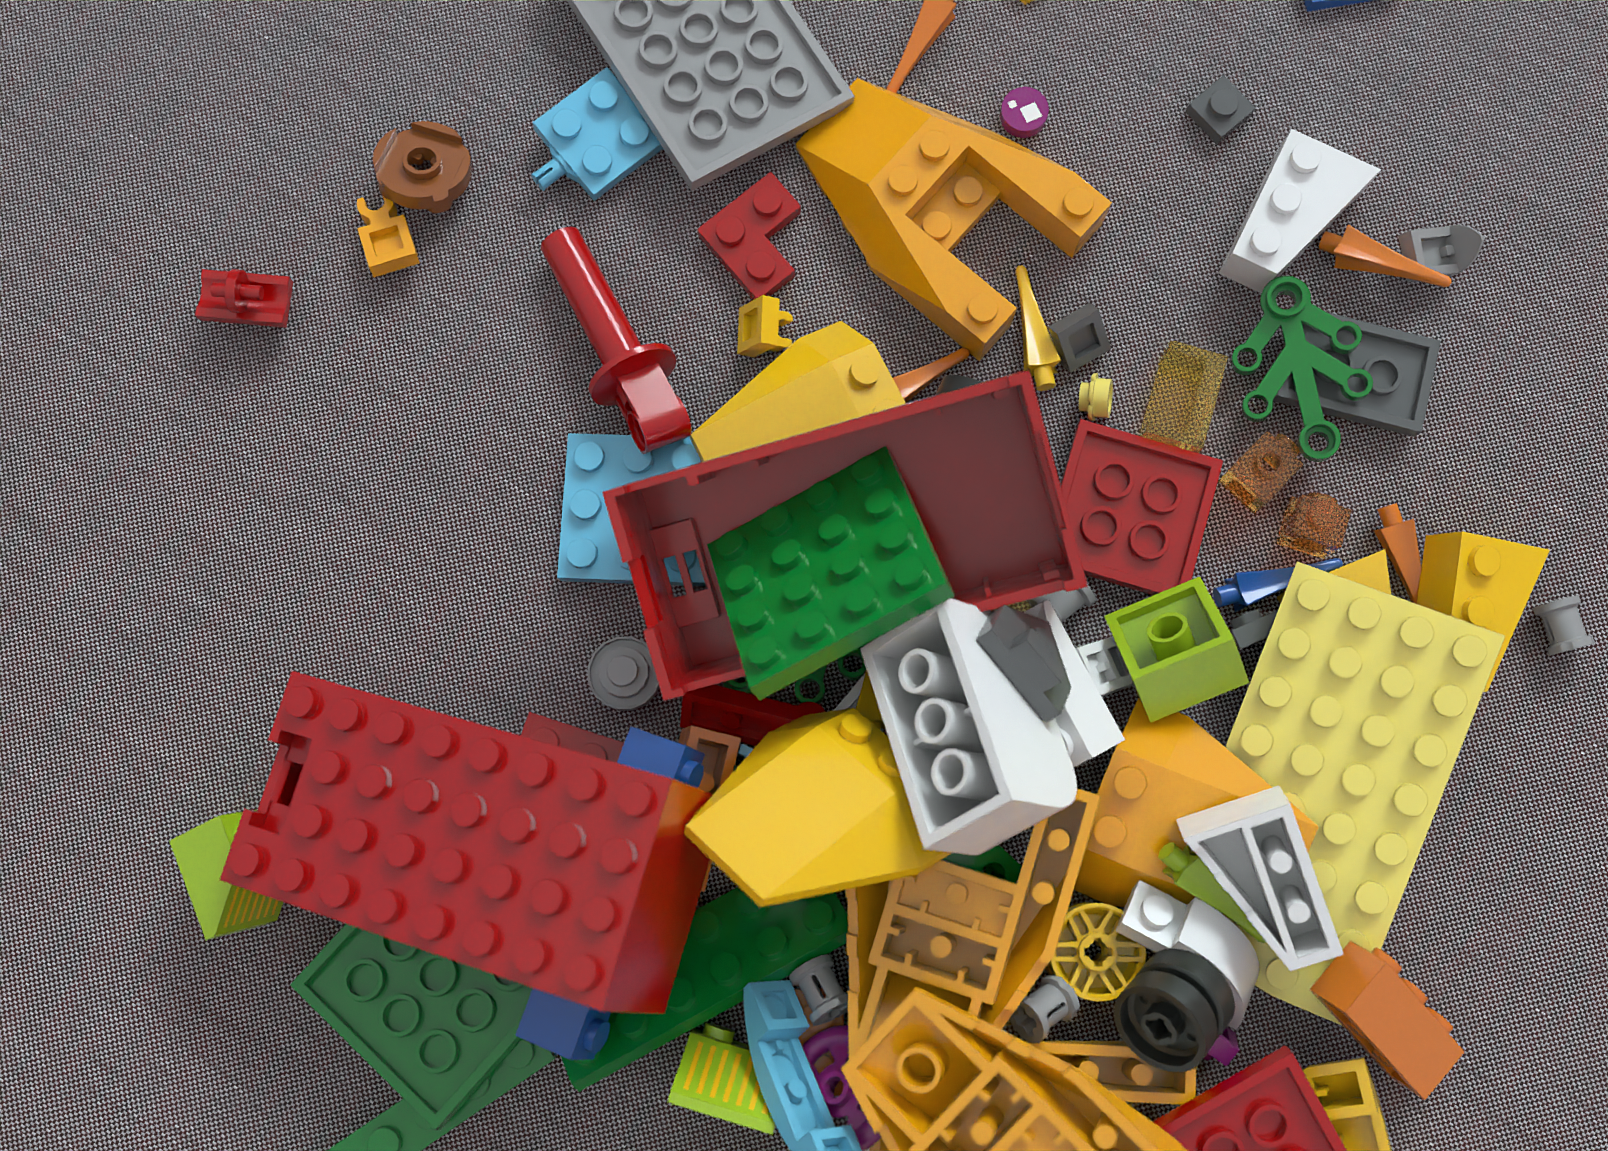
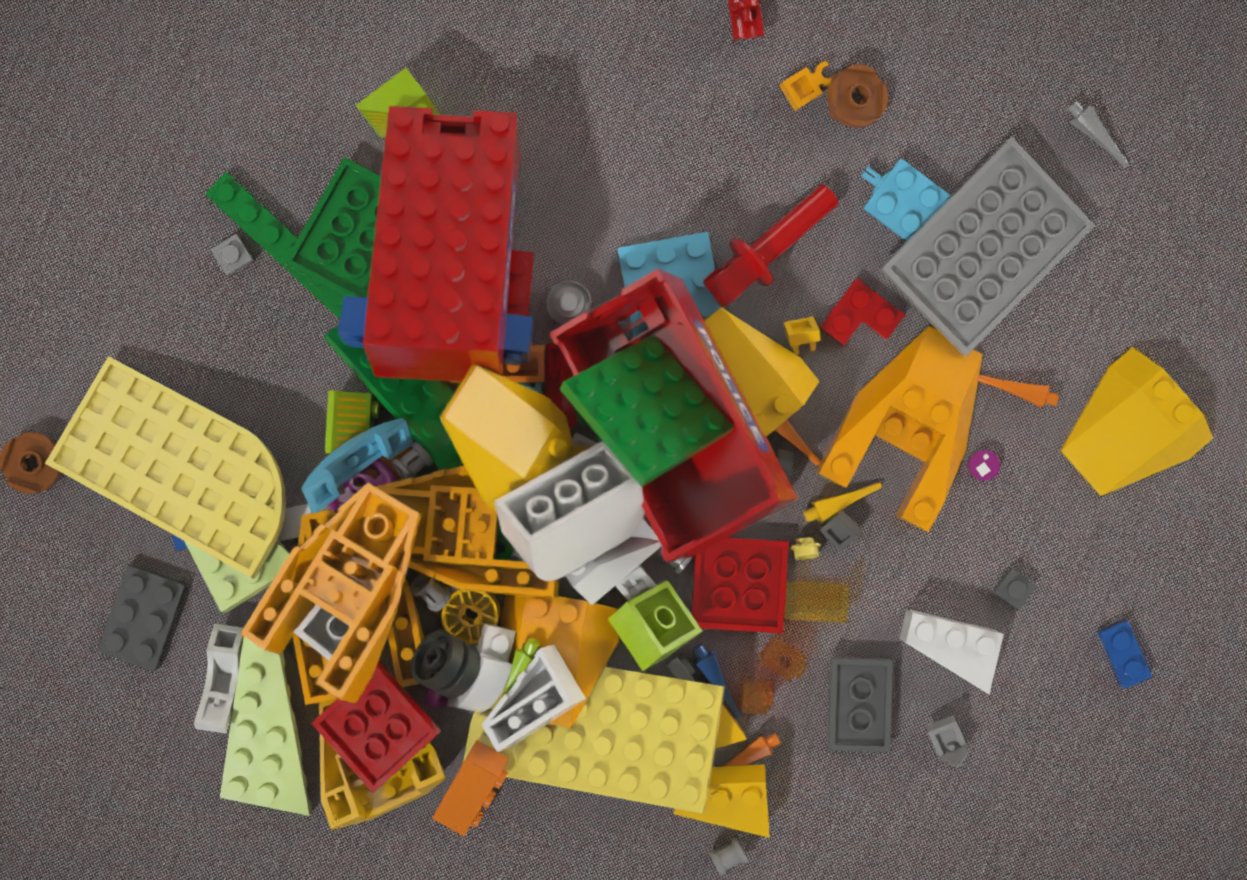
camera: 75 degrees right, 10 degrees up
(1028, 658) = (620, 538): dark grey plate -> none
(1300, 360) = (856, 667): green plant -> none
(1363, 253) = (936, 693): orange piece -> none

